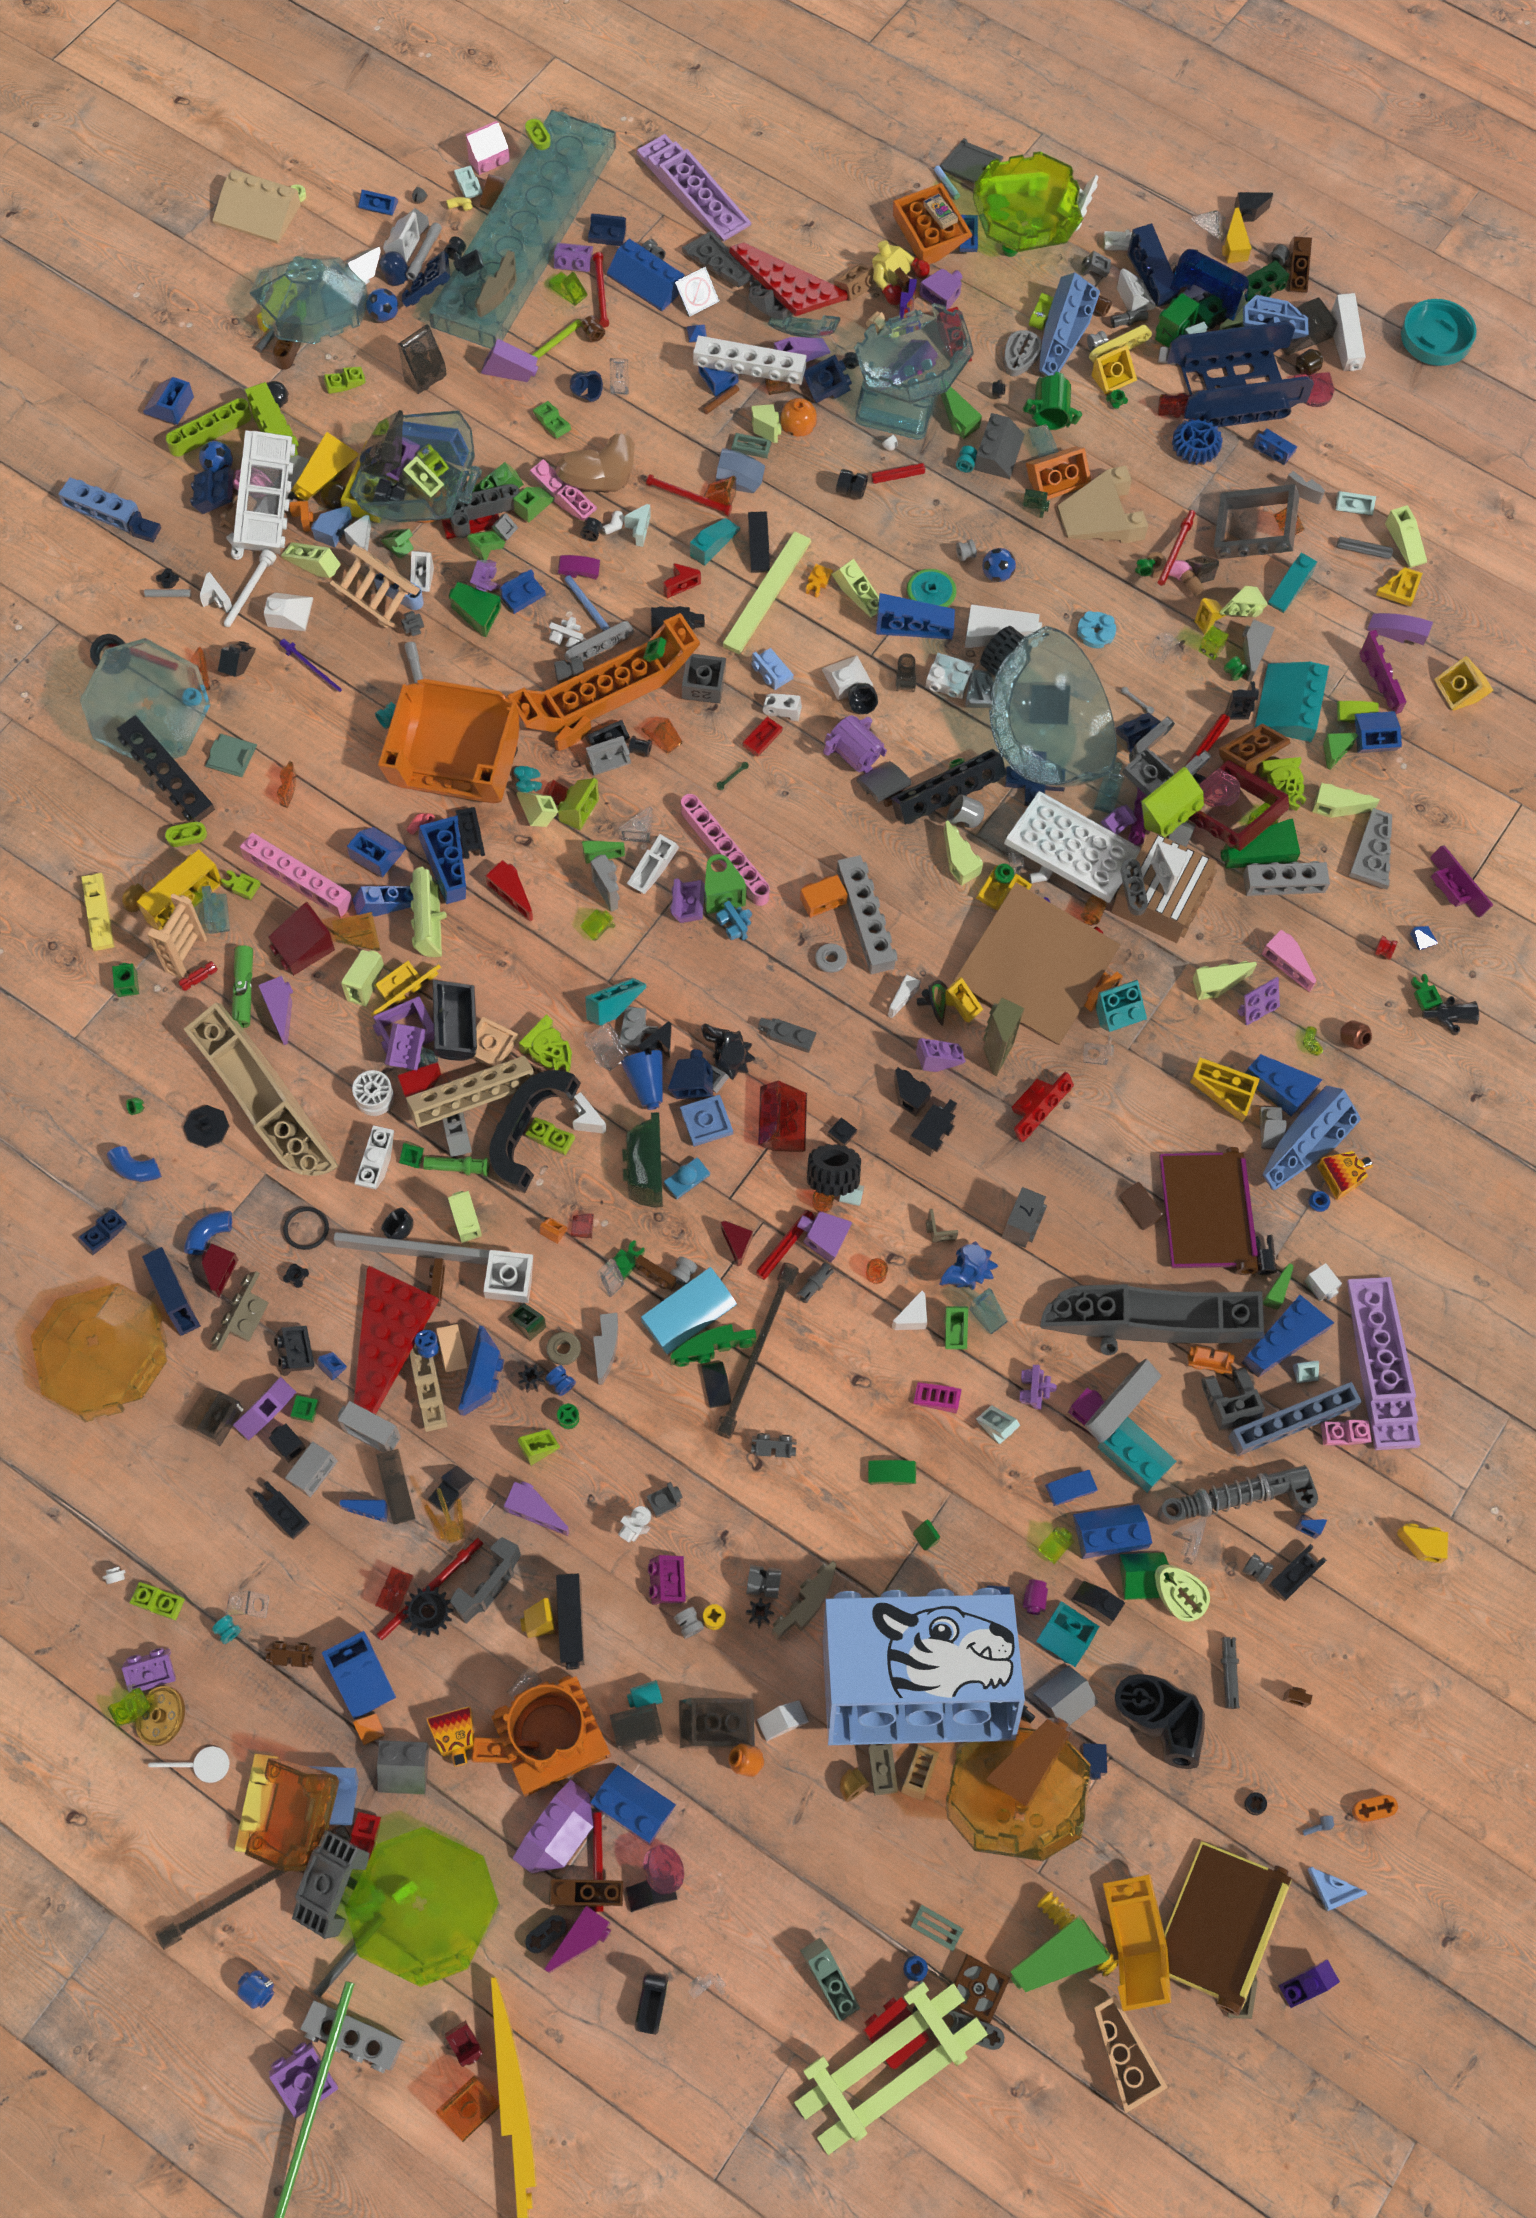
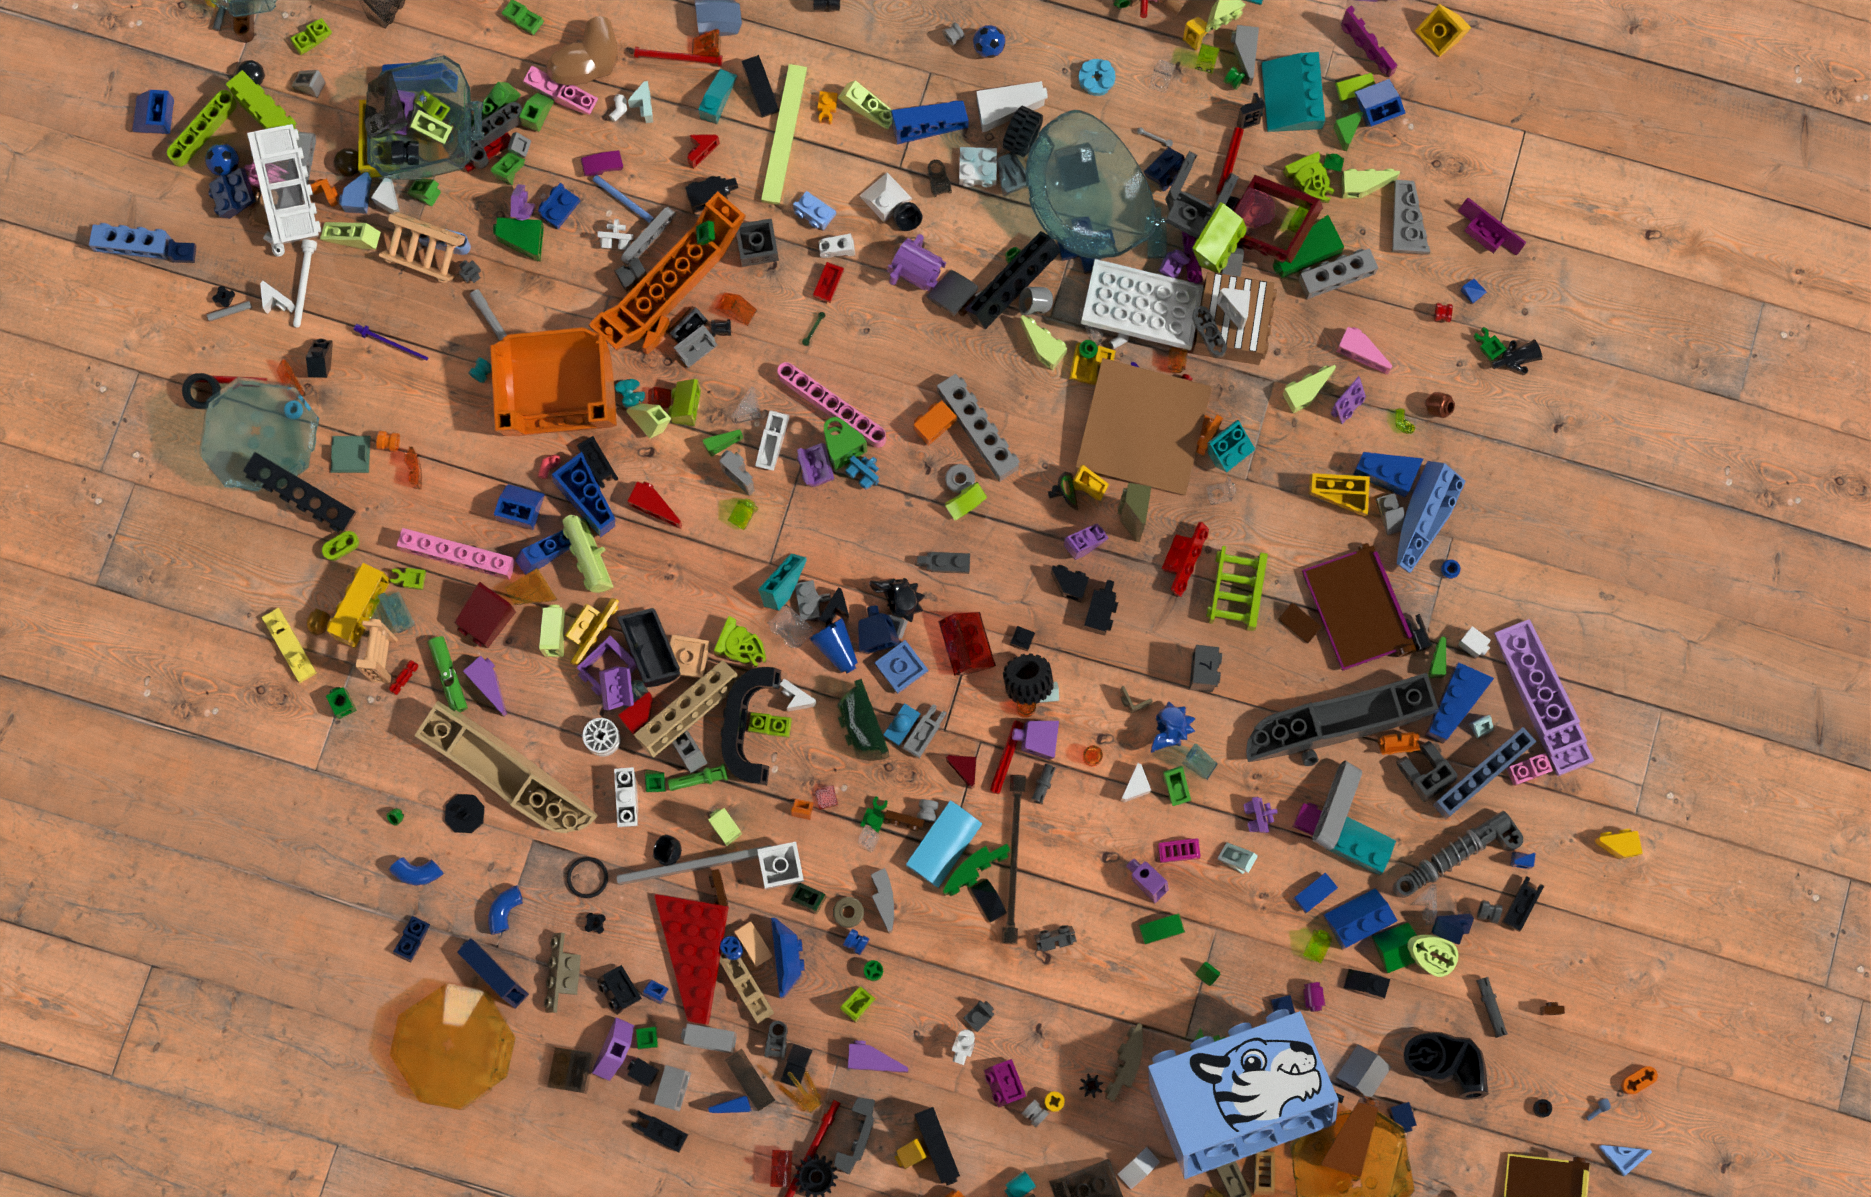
camera: 15 degrees left, 10 degrees up
(218, 1267) = (525, 938): dark red slope -> none
(269, 751) = (388, 441): none -> orange wheel
(288, 611) = (349, 293): white slope -> none
(324, 465) = (327, 137): yellow slope -> none
(327, 418) = (309, 82): none -> light grey slope
(422, 569) = (458, 215): white slope -> none
(439, 1456) = (776, 1042): none -> dark grey piece
(534, 1384) = (826, 944): black gear -> none
(591, 529) = (600, 122): black wheel -> none
(707, 1192) = (924, 733): none -> light grey hinge
(764, 1581) = (1086, 1058): dark grey wheel -> none
(829, 980) = (966, 501): none -> lime slope
(894, 1415) = (1154, 885): none -> medium lavender torso
(906, 991) = (1036, 489): white slope -> none
(941, 586) = (933, 72): teal wheel -> none
(1068, 1634) = (1350, 1019): teal slope -> none
(1097, 1167) = (1252, 600): none -> lime fence
(1212, 1569) = (1452, 927): none -> dark blue slope
(1253, 747) = (1274, 154): dark orange slope -> none
(1313, 773) = (1333, 162): none -> green plate
(1344, 1172) = (1465, 536): torso -> none

